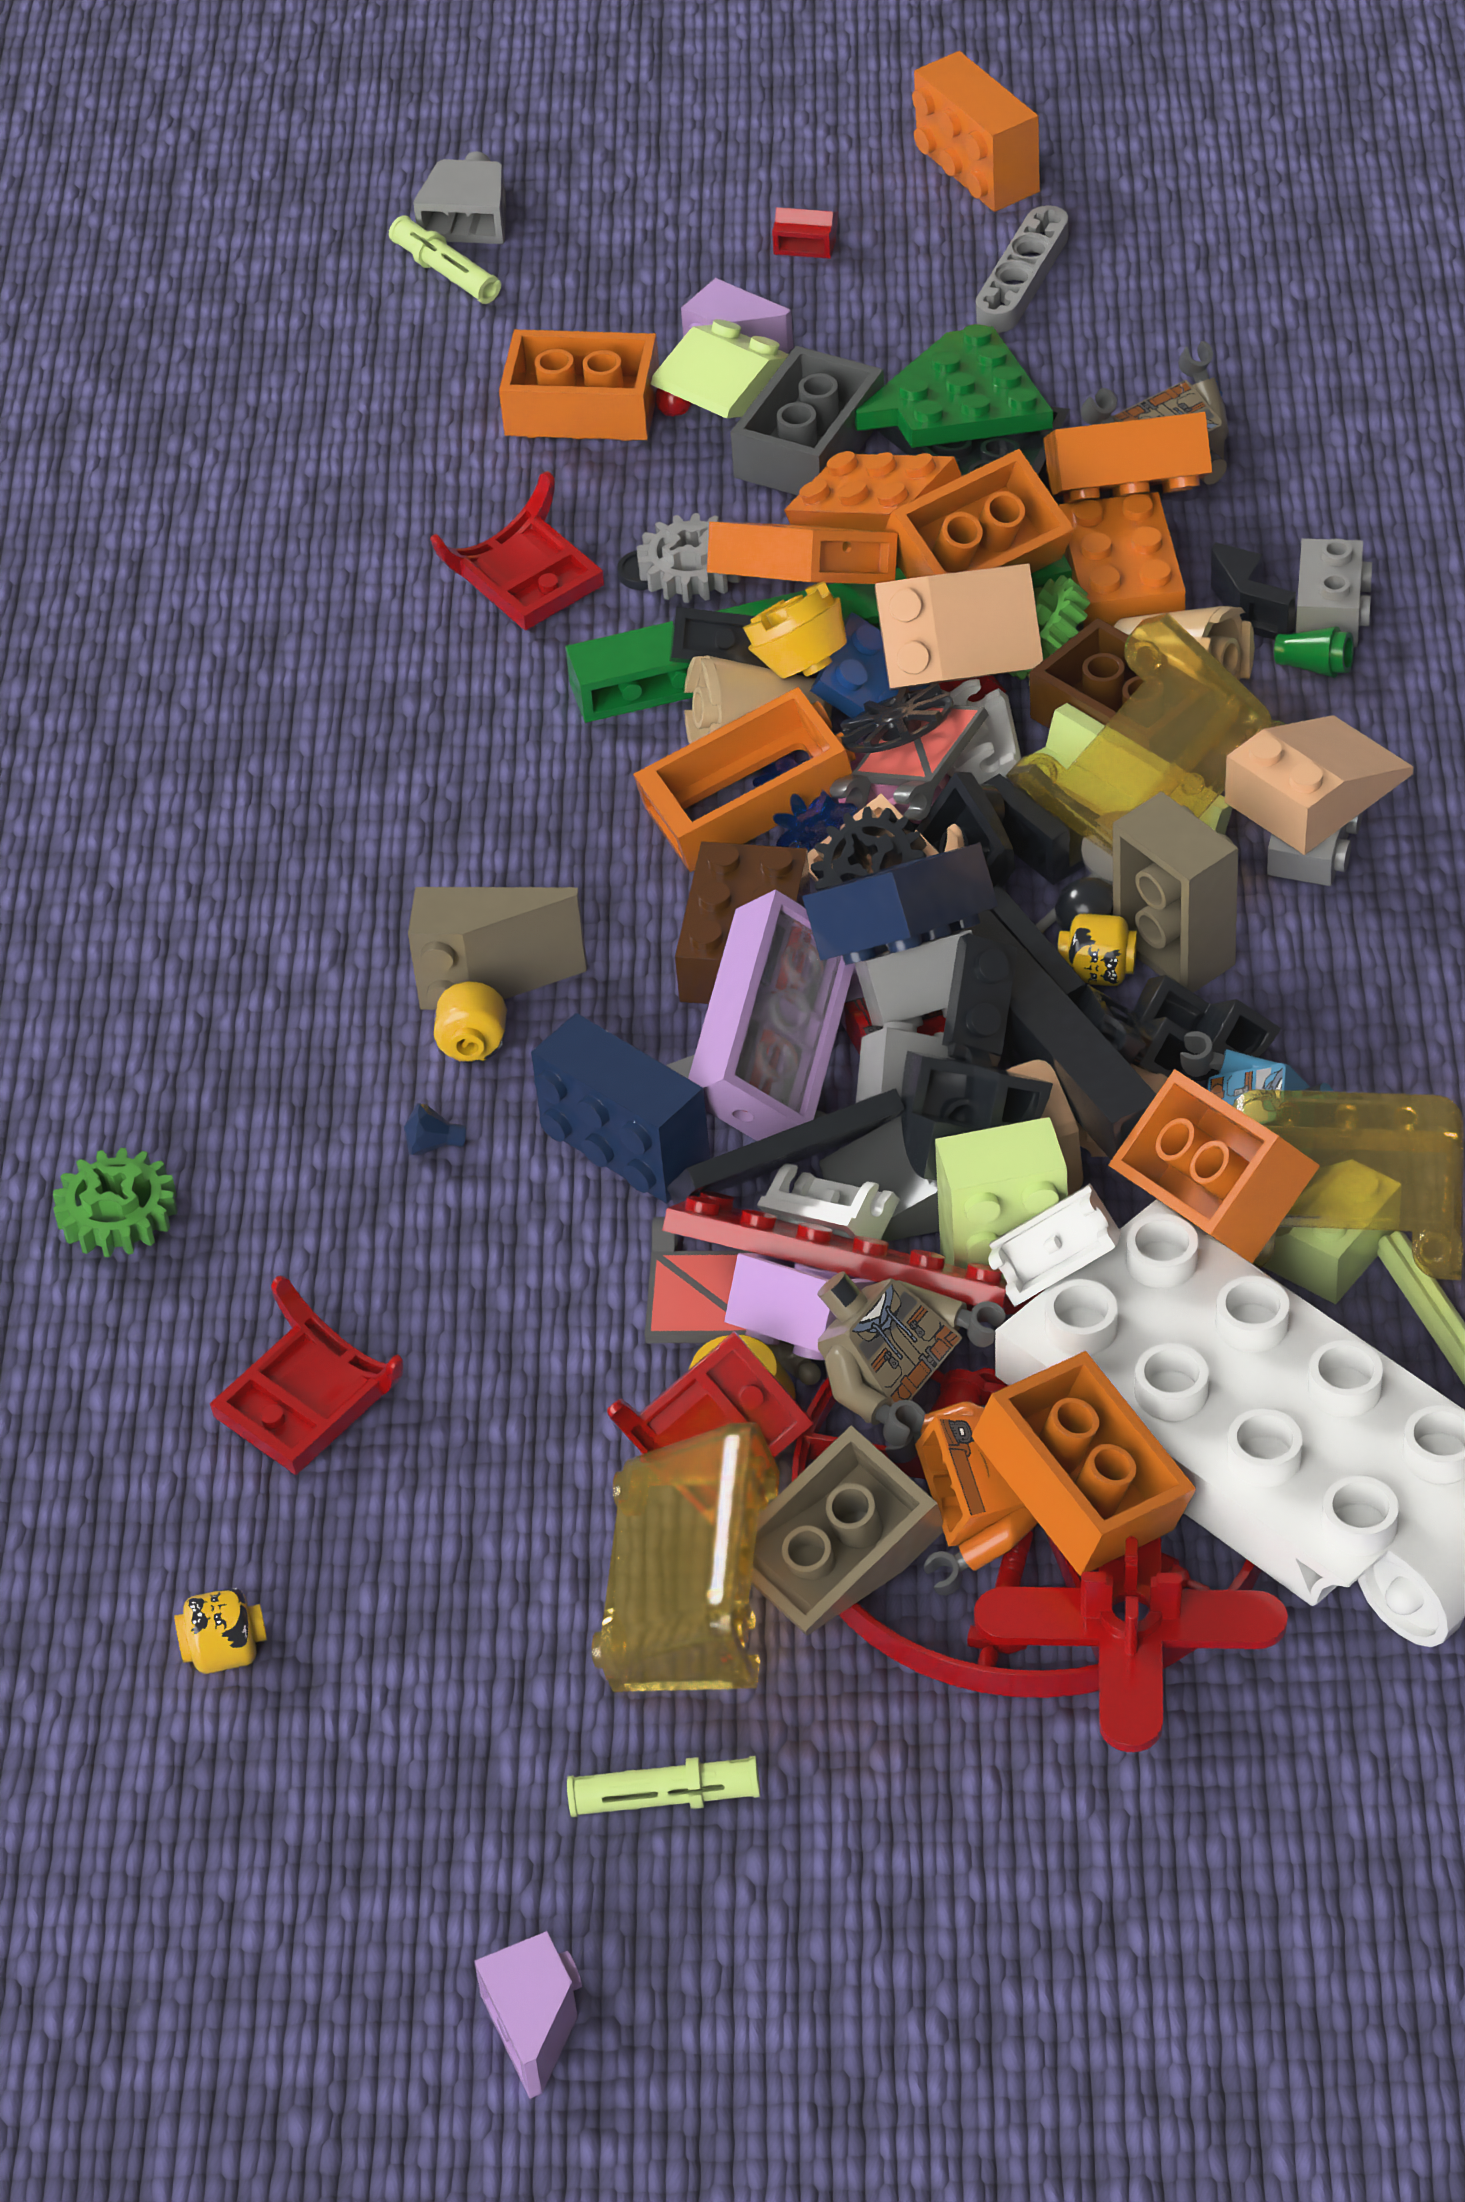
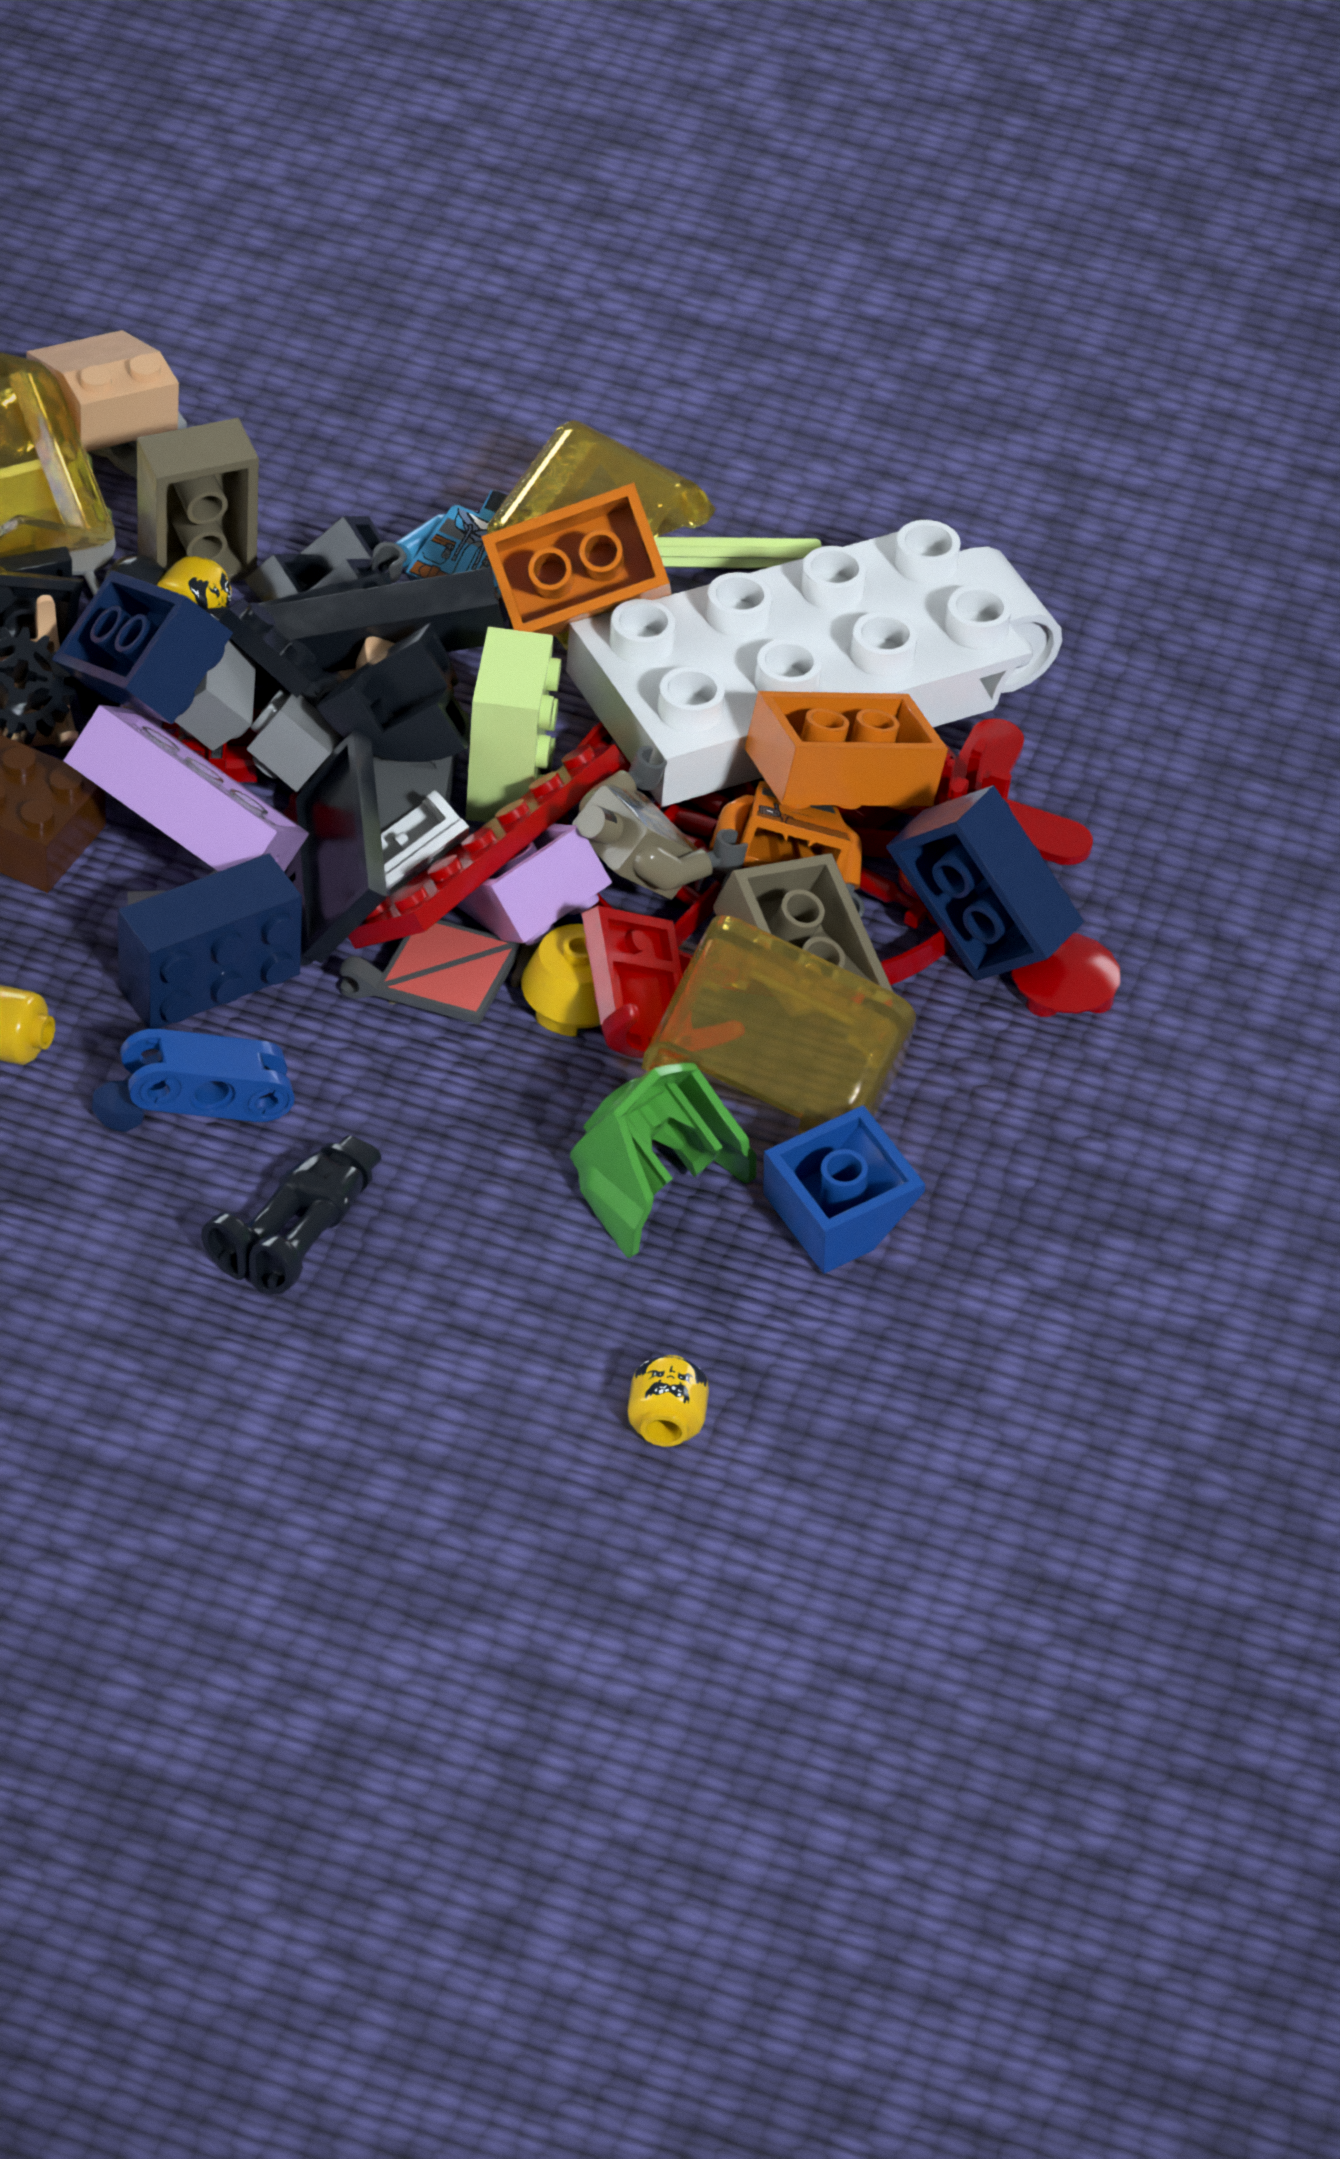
camera: 80 degrees left, 0 degrees up
(115, 1202) = (81, 1349): bright green gear -> none
(303, 1387) = (411, 1266): red piece -> none
(370, 1296) = (316, 1191): none -> black piece
(461, 1166) = (207, 1075): none -> blue piece
(518, 1665) = (840, 1187): none -> blue slope
(531, 2004) = (1177, 1294): lavender slope -> none
(556, 1508) = (616, 1154): none -> bright green piece
(663, 1786) = (983, 1134): yellowish green pin -> none
(971, 1795) = (1072, 980): none -> red dish
(976, 1649) = (985, 883): none -> dark blue brick
(1054, 1244) = (599, 690): white hinge -> none

